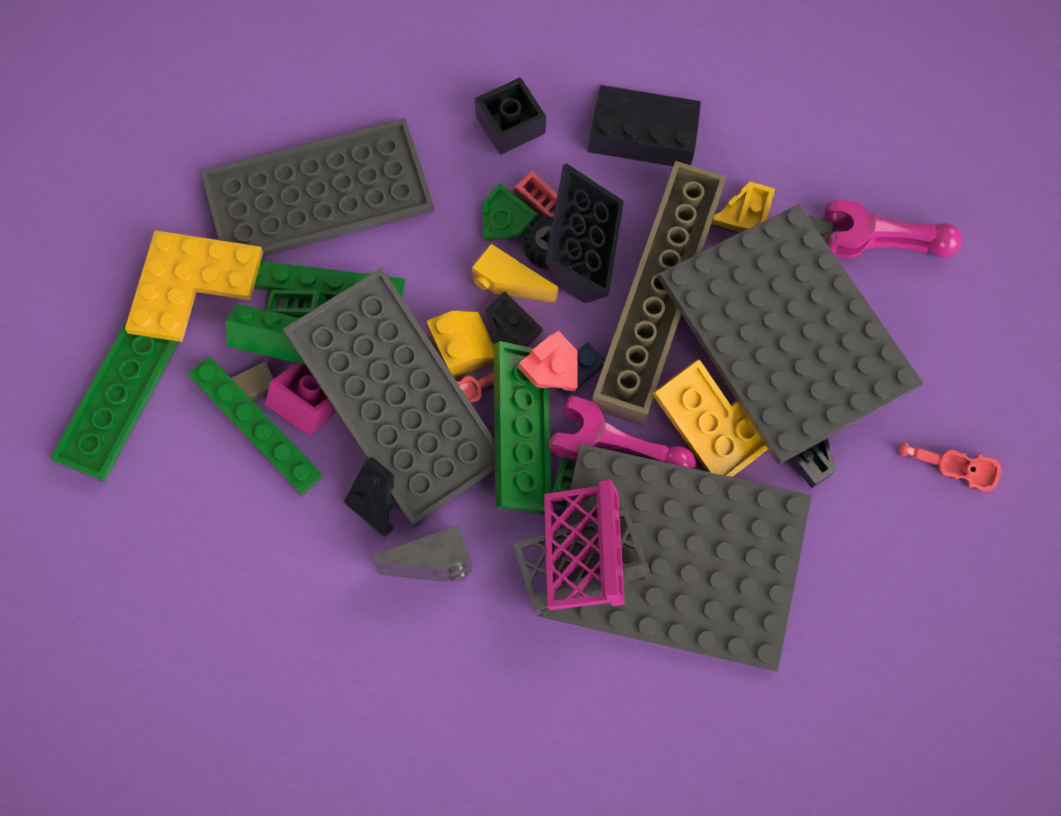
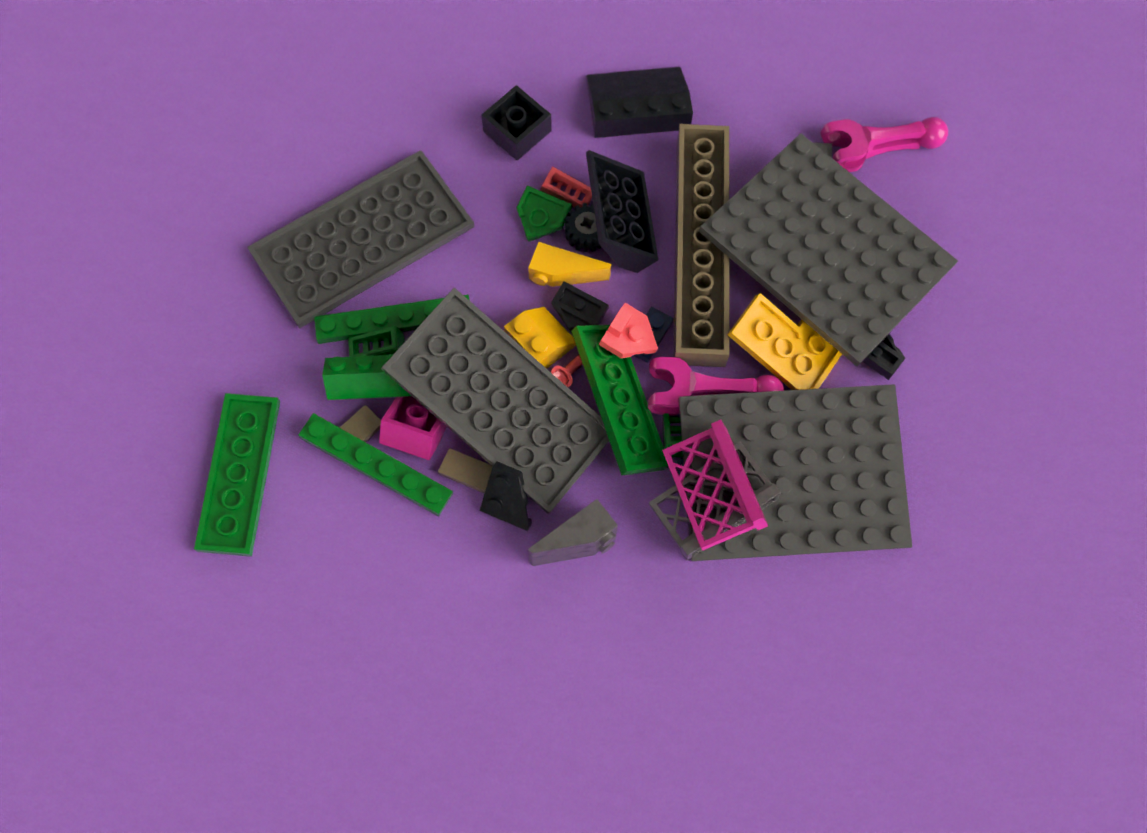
camera: 15 degrees left, 0 degrees up
(177, 270) = (259, 340): yellow plate -> none
(341, 455) = (465, 470): none -> dark tan tile
(746, 208) = (753, 150): yellow wing -> none
(979, 472) = (1026, 325): coral piece -> none

